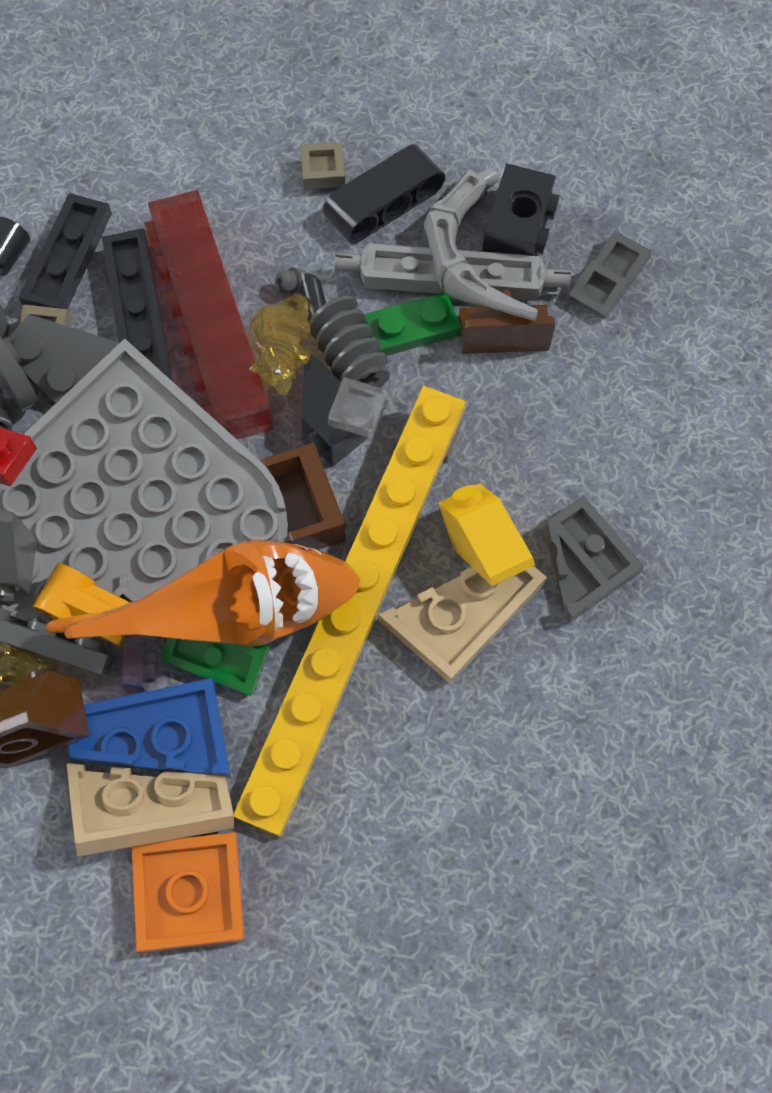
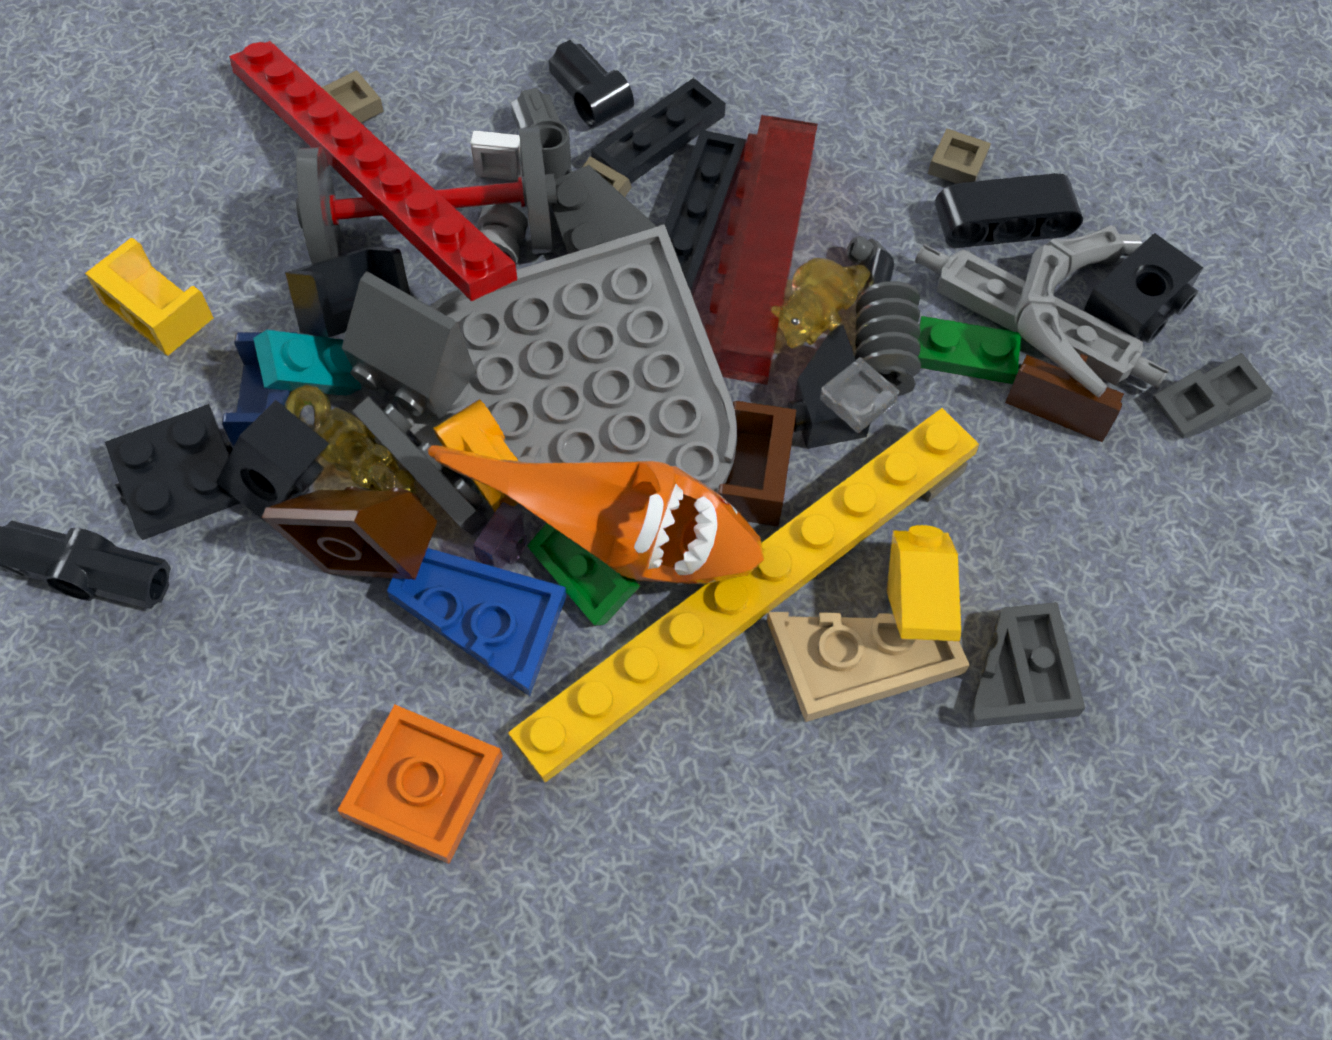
camera: 30 degrees right, 5 degrees down
(138, 810) = (421, 676): tan wing -> none

